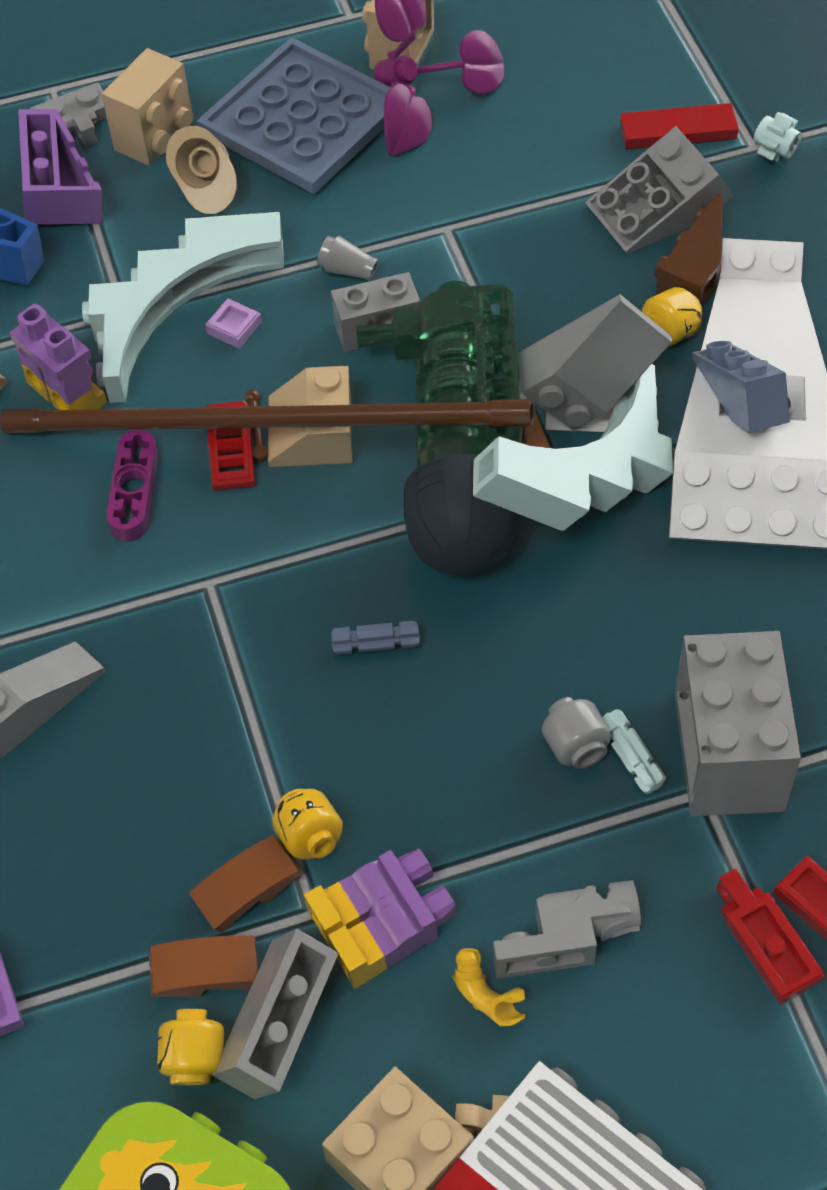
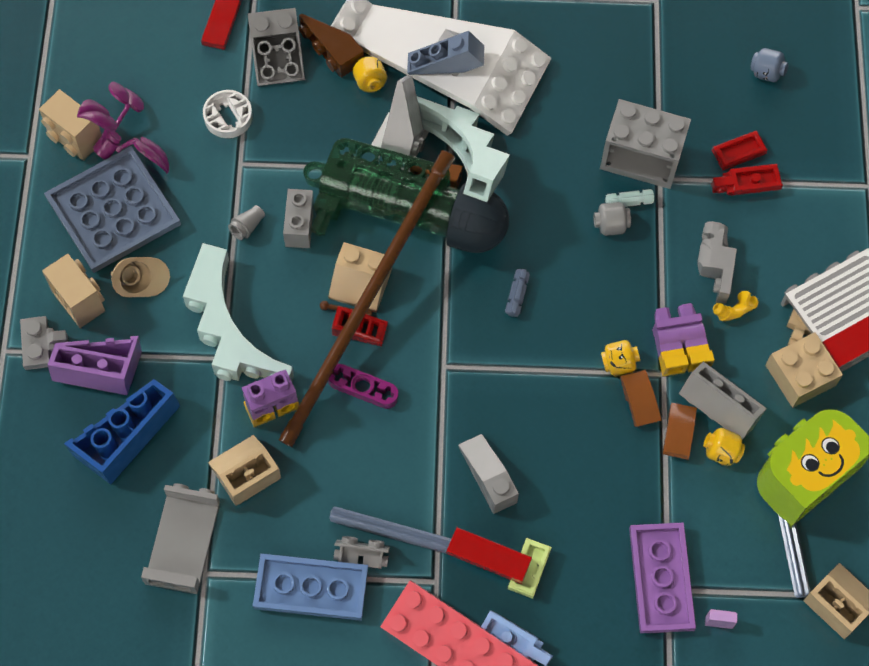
camera: 75 degrees left, 10 degrees up
(233, 323) = (263, 299): lavender tile -> none
(507, 167) = (227, 98): none -> white piece

